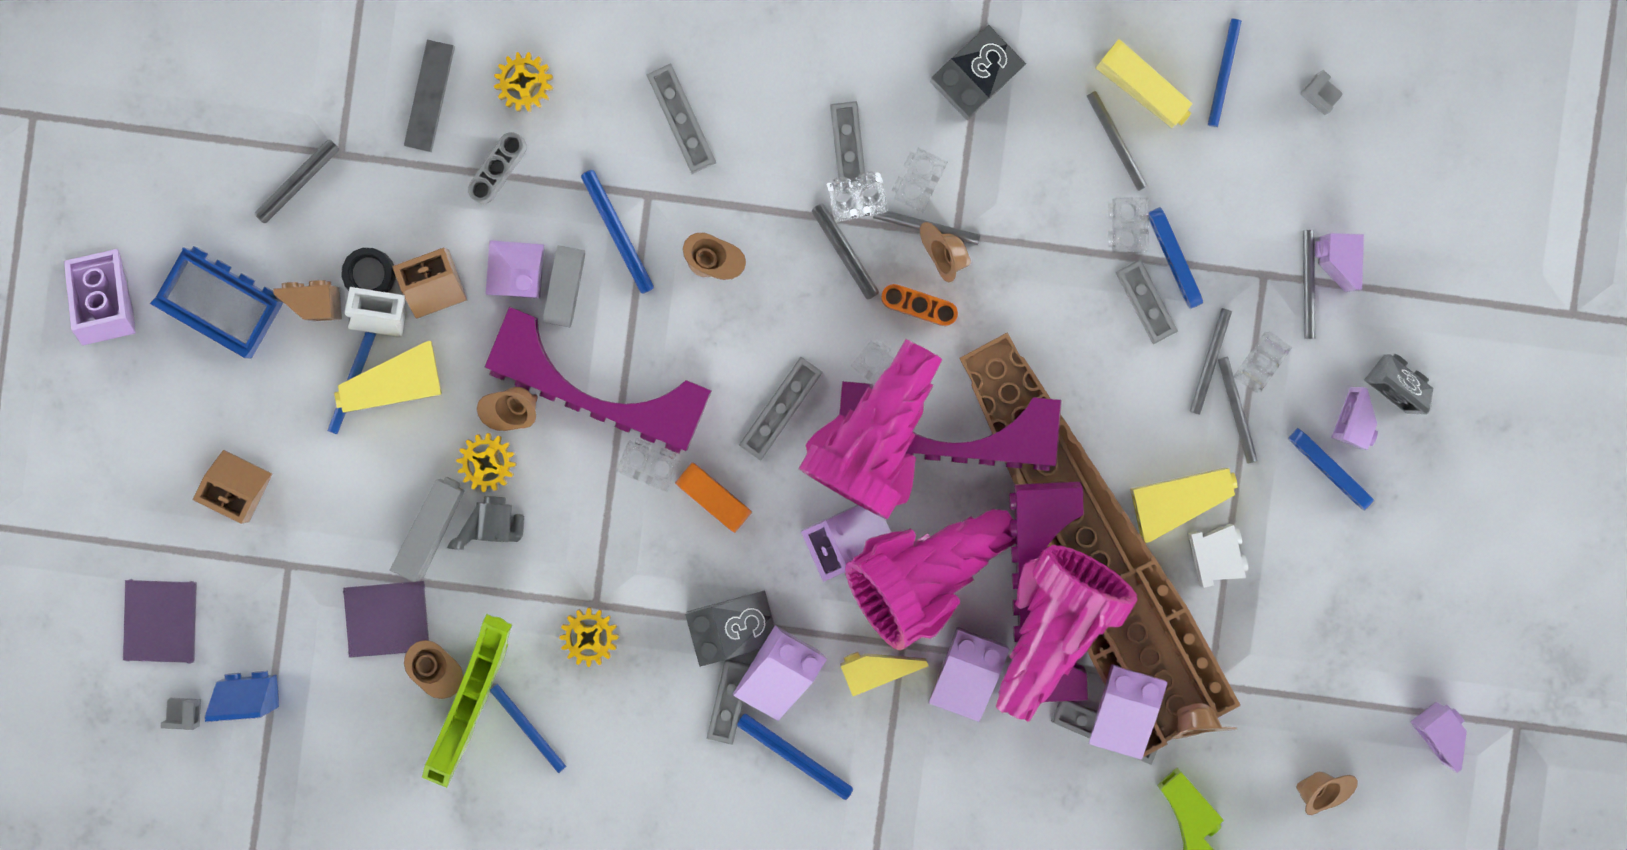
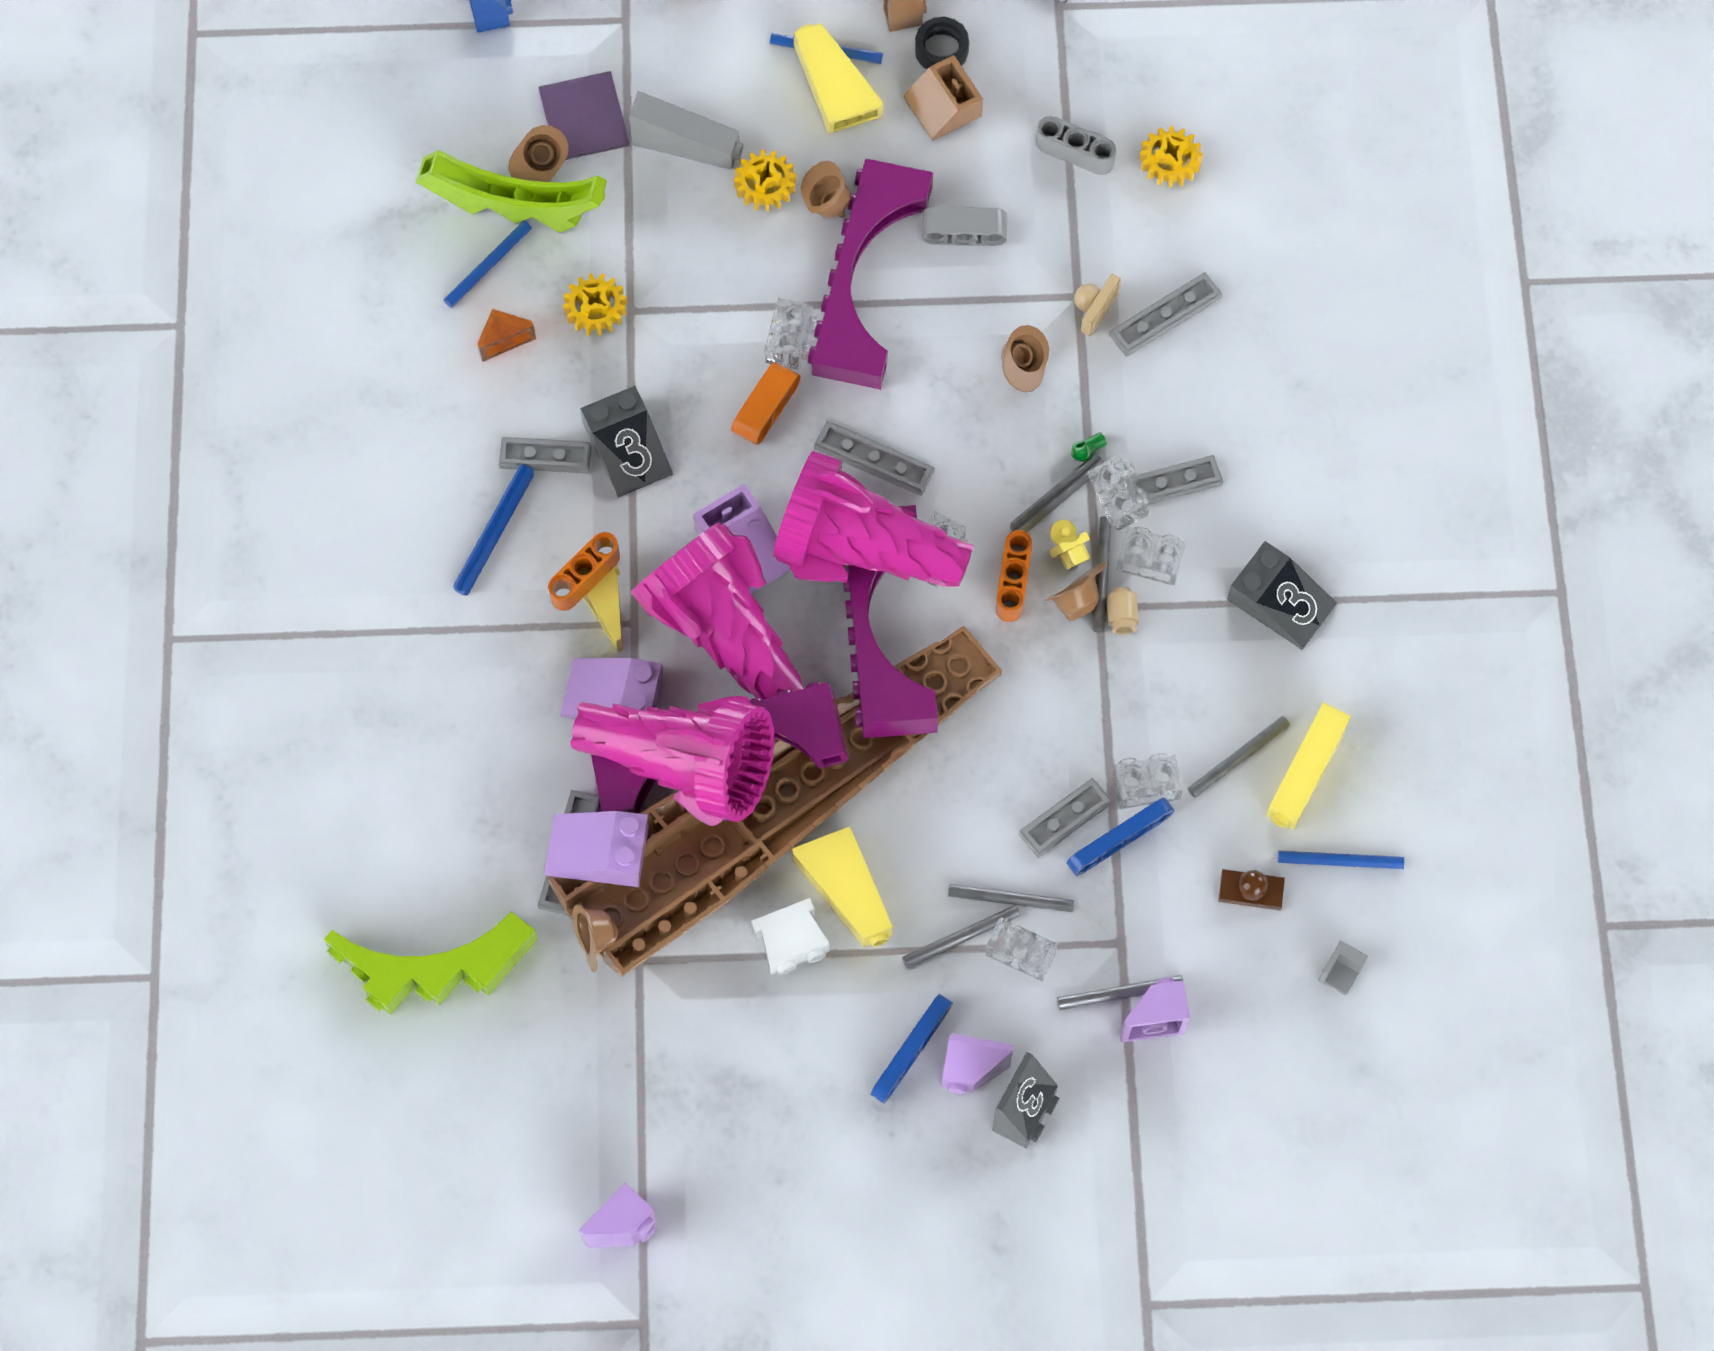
camera: 75 degrees right, 20 degrees down
(375, 311) = (903, 51): white hips -> none
(429, 96) = (1136, 75): flat silver tile -> none
(490, 523) = (702, 191): dark grey piece -> none
(514, 269) = (973, 180): lavender slope -> none
(605, 726) = (503, 334): none -> clear orange slope
(617, 231) = (1032, 270): blue axle -> none
(659, 184) = (1096, 302): none -> tan tile
(779, 673) = (584, 494): lavender slope -> none
(804, 218) = (1083, 449): none -> green arm
(866, 699) = (586, 558): none -> orange beam
(903, 251) = (1069, 546): none -> light yellow hips
(968, 215) = (1122, 611): none -> tan brick
(1238, 155) = (1251, 889): none -> reddish brown tile
(1325, 792) = (532, 1102): medium nougat piece -> none

